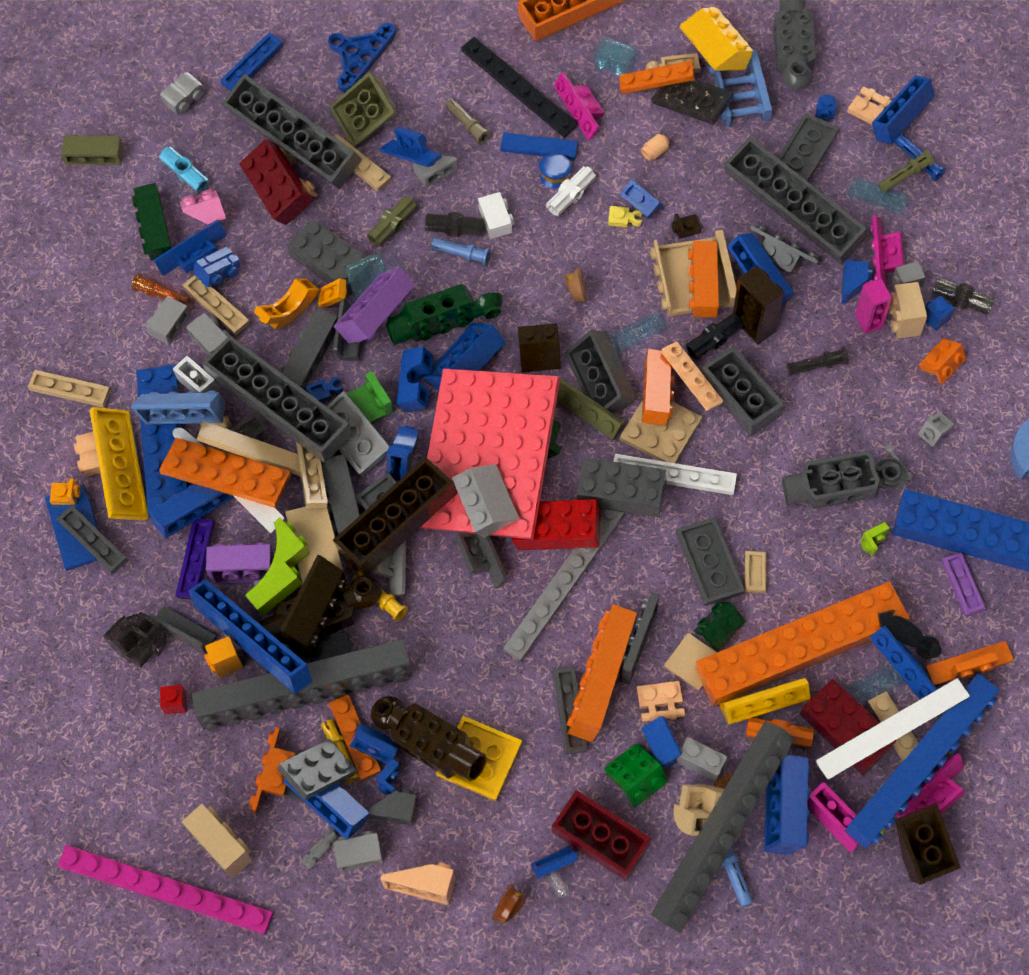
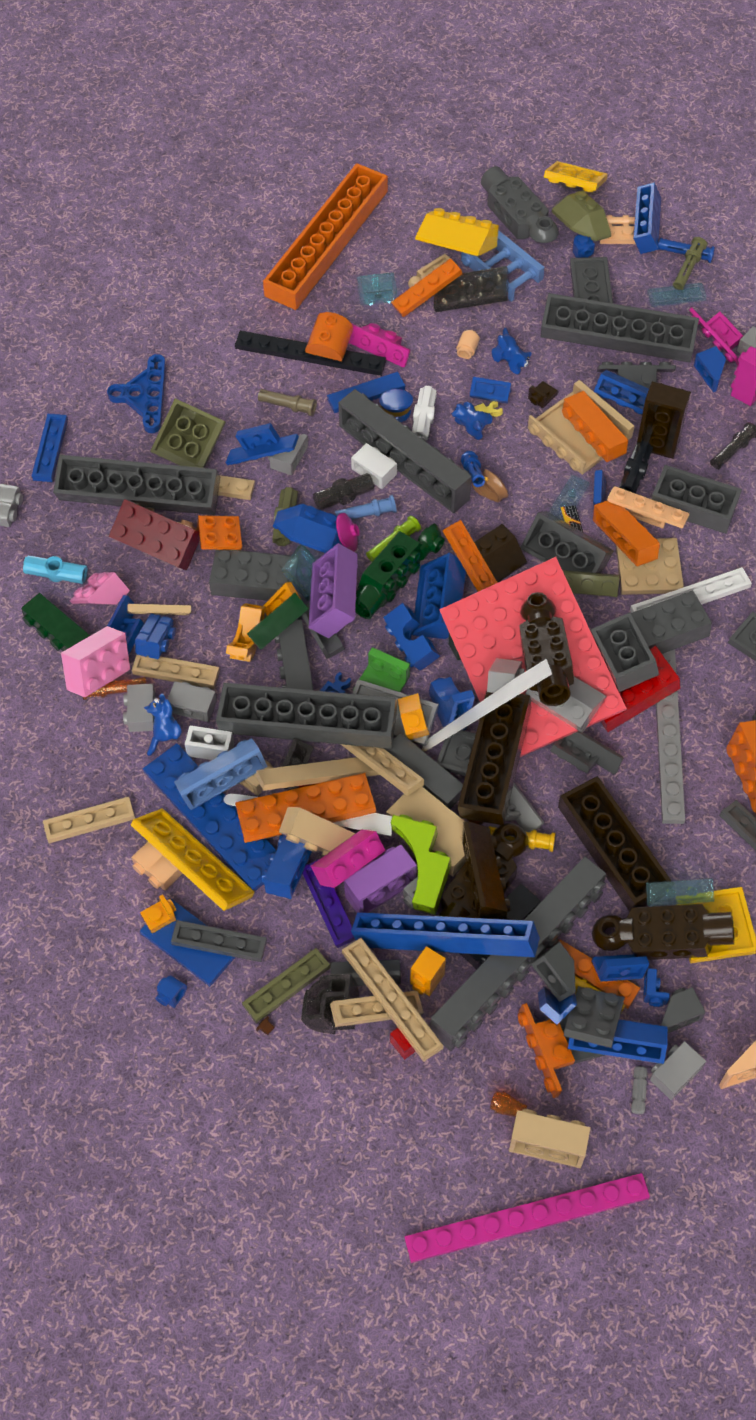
camera: 35 degrees left, 5 degrees down
(33, 556) = (170, 991): none -> blue plate
(83, 625) = (265, 1026): none -> reddish brown piece
(118, 603) = (286, 985): none -> olive plate
(152, 263) = (95, 661): none -> bright pink brick
(165, 662) = (366, 1009): none -> tan plate
(173, 344) = (164, 724): none -> blue animal
(178, 661) = (392, 999): none -> tan tile
(211, 796) = (505, 1104): none -> clear orange cone
(219, 504) = (312, 831): none -> tan brick
(223, 531) = (348, 858): none -> dark pink brick
(237, 247) = (158, 609): none -> tan tile
(298, 741) = (553, 1008): none -> blue panel
(313, 307) = (277, 621): none -> dark green tile
(317, 715) = (557, 971): none -> dark grey slope
(324, 207) = (219, 532): none -> orange bracket
(361, 446) = (413, 717): none -> light orange slope
(401, 246) = (308, 527): none -> blue wedge
(425, 469) = (492, 702): none -> white sticker
(427, 261) = (347, 531): none -> dark pink dish
(445, 644) = (612, 841): none -> dark brown brick
(446, 454) = (502, 673): none -> light grey brick
(462, 713) = (680, 892): none -> clear light blue tile
(474, 286) = (408, 527): none -> lime pin
(487, 452) = (543, 639): none -> dark brown brick
(508, 337) = (469, 556): none -> orange plate
(527, 216) = (413, 455): none -> dark grey brick
(538, 81) = (330, 336): none -> orange brick
(560, 489) = (625, 652): none -> dark grey brick
(572, 259) = (474, 468): none -> blue pin
(605, 217) = (472, 420): none -> blue animal
(626, 350) = (571, 516): none -> sticker
(668, 336) = (599, 487): none -> blue tile
(684, 169) = (510, 351): none -> blue animal
(842, 79) = (583, 215): none -> olive wedge
(867, 36) = (575, 176): none -> yellow plate

